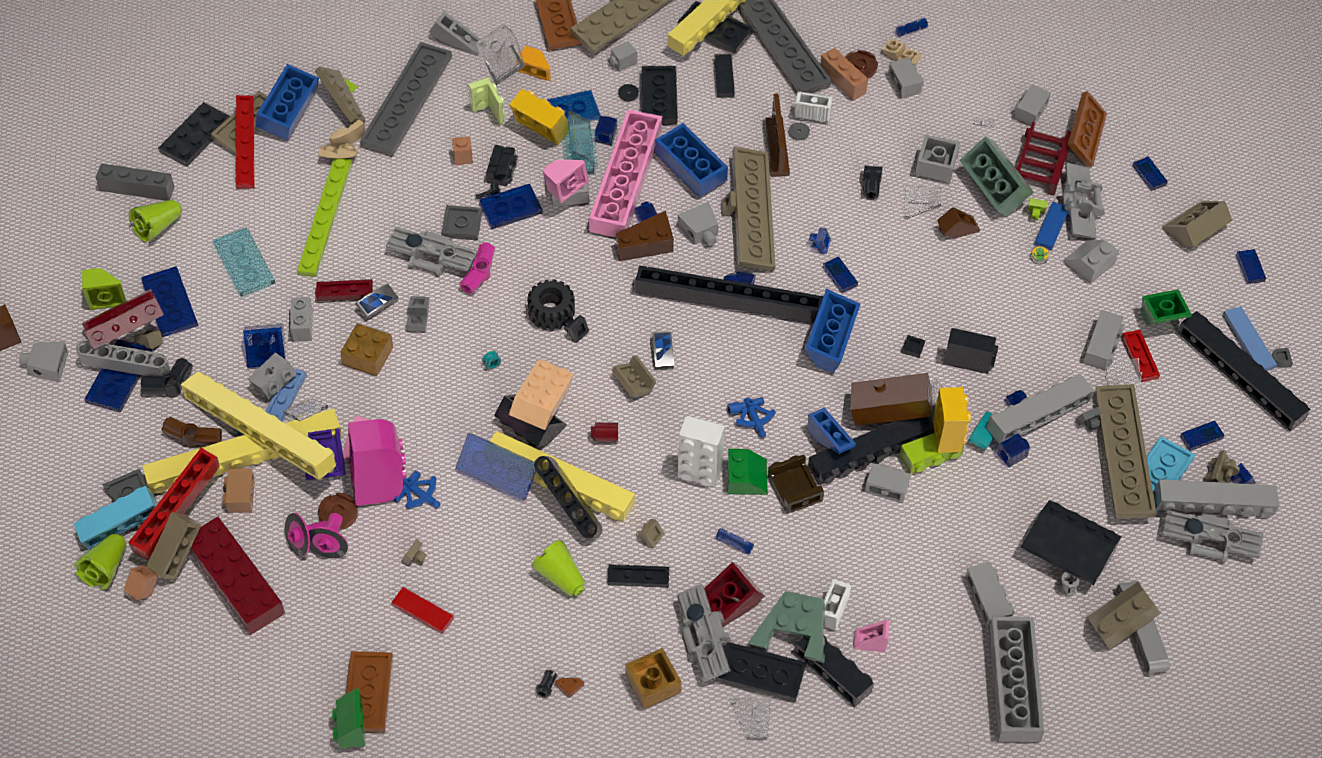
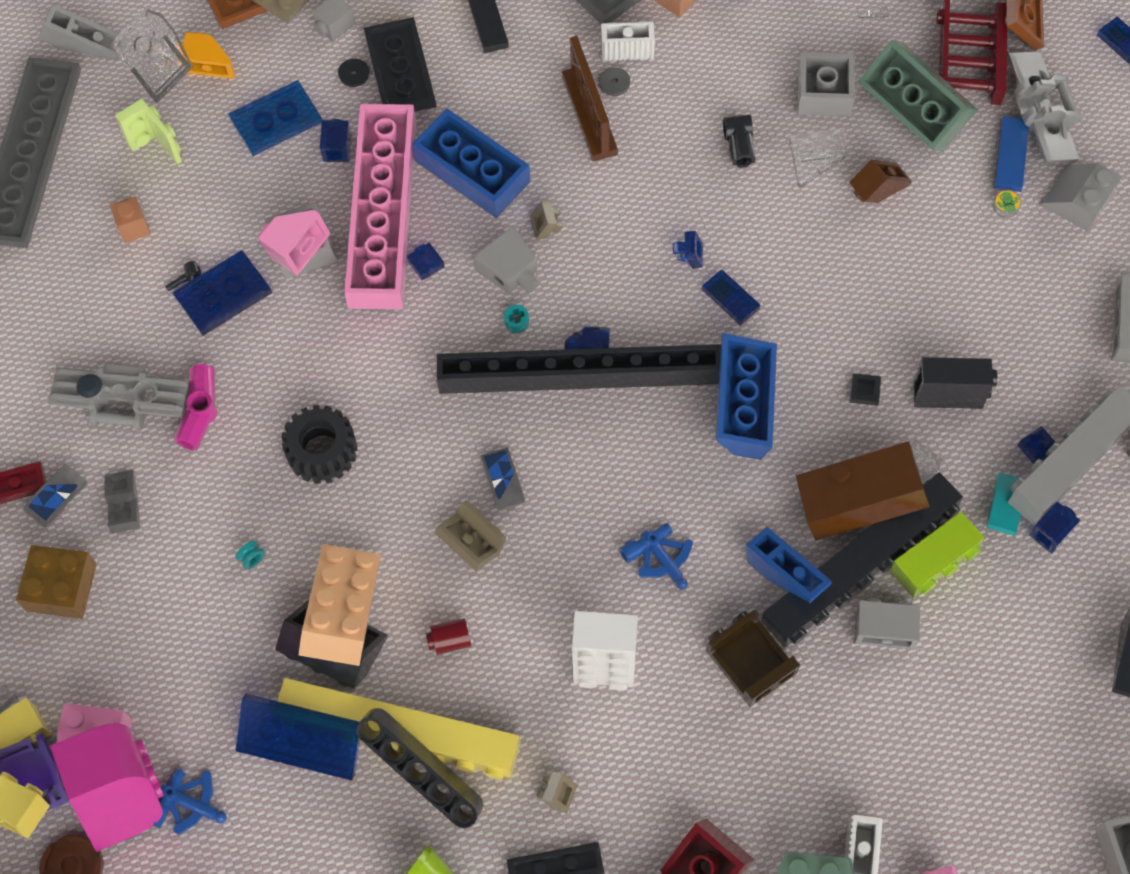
camera: 10 degrees left, 10 degrees up
(462, 222) = (155, 335): dark grey tile -> none
(501, 165) = (193, 230): black brick -> none
(540, 116) = (233, 141): yellow brick -> none
(577, 328) = (367, 472): black tile -> none
(581, 141) = (304, 170): clear light blue slope -> none
(645, 238) = (435, 303): reddish brown wedge -> none
(696, 254) = (509, 322): none -> teal bush
(735, 541) = (685, 773): clear blue axle -> none
(746, 473) = (675, 656): green slope -> none
(753, 209) = (581, 222): dark tan plate -> none
(951, 419) = (965, 512): yellow brick -> none
(988, 592) = (1083, 777): light grey brick -> none
(1037, 206) = (984, 130): lime tile -> none

